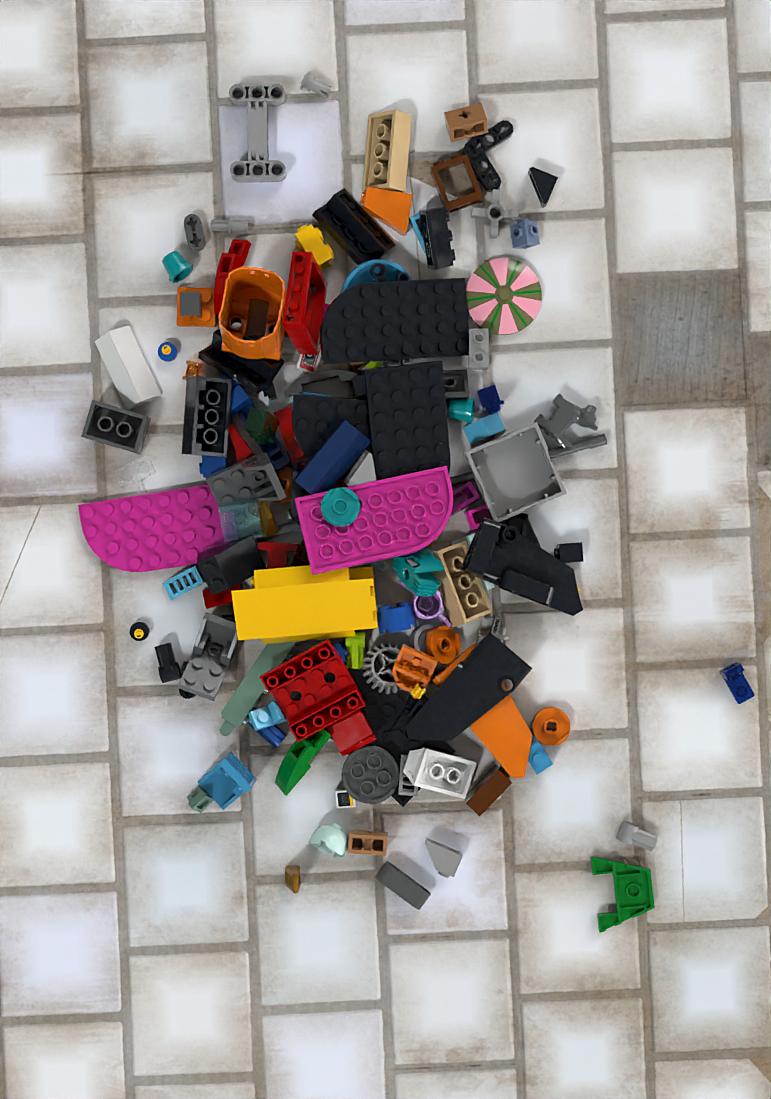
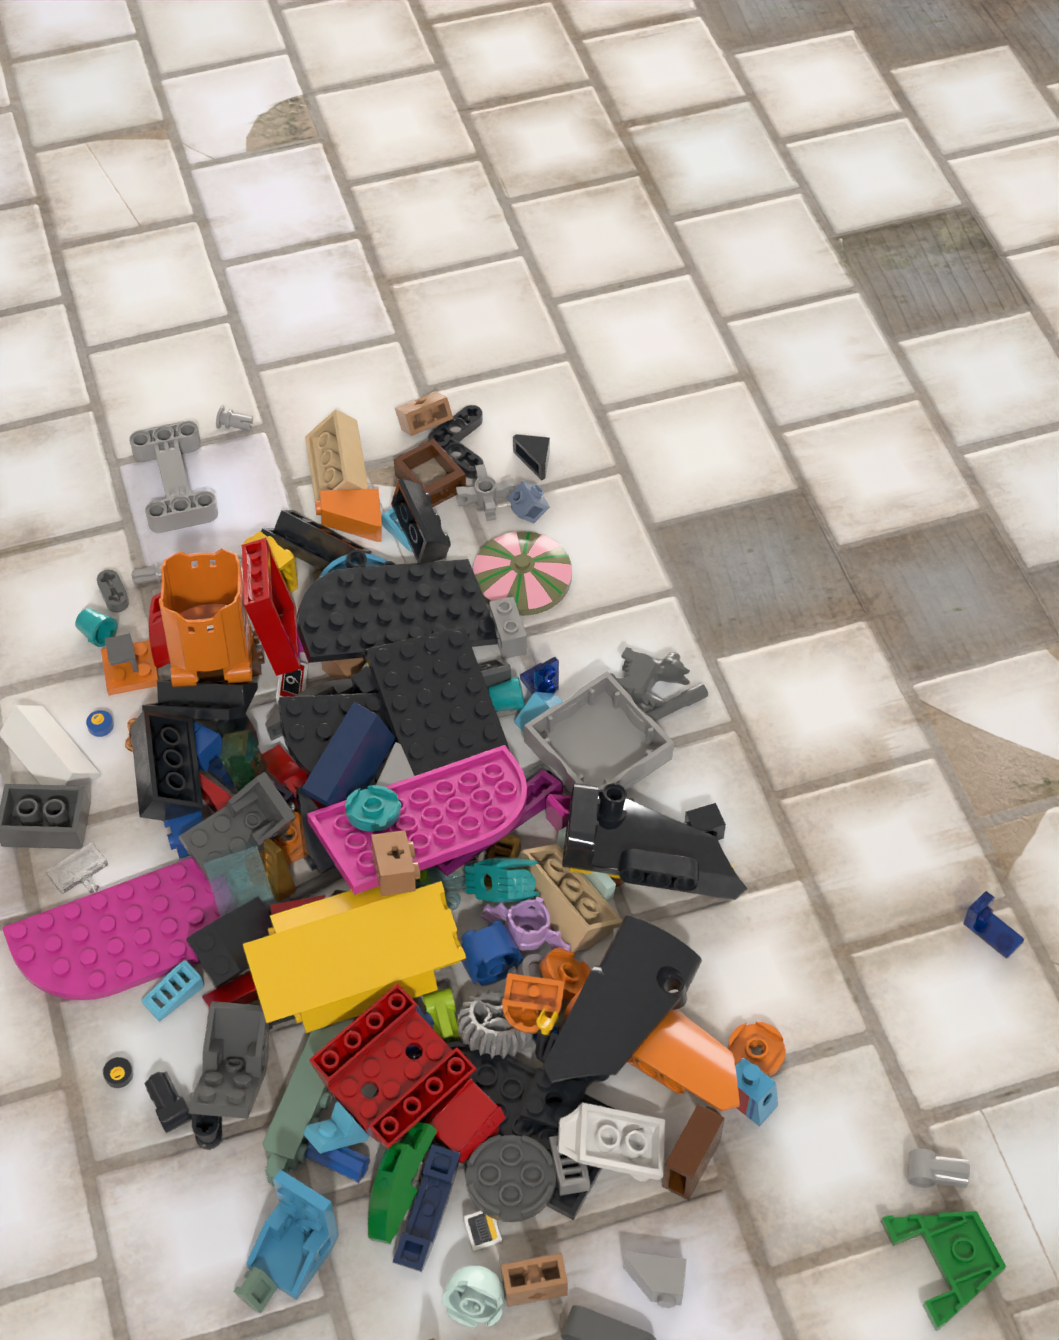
camera: 15 degrees left, 35 degrees down
(314, 779) = (428, 1208): none -> dark blue slope
(339, 576) = (394, 862): none -> medium nougat brick

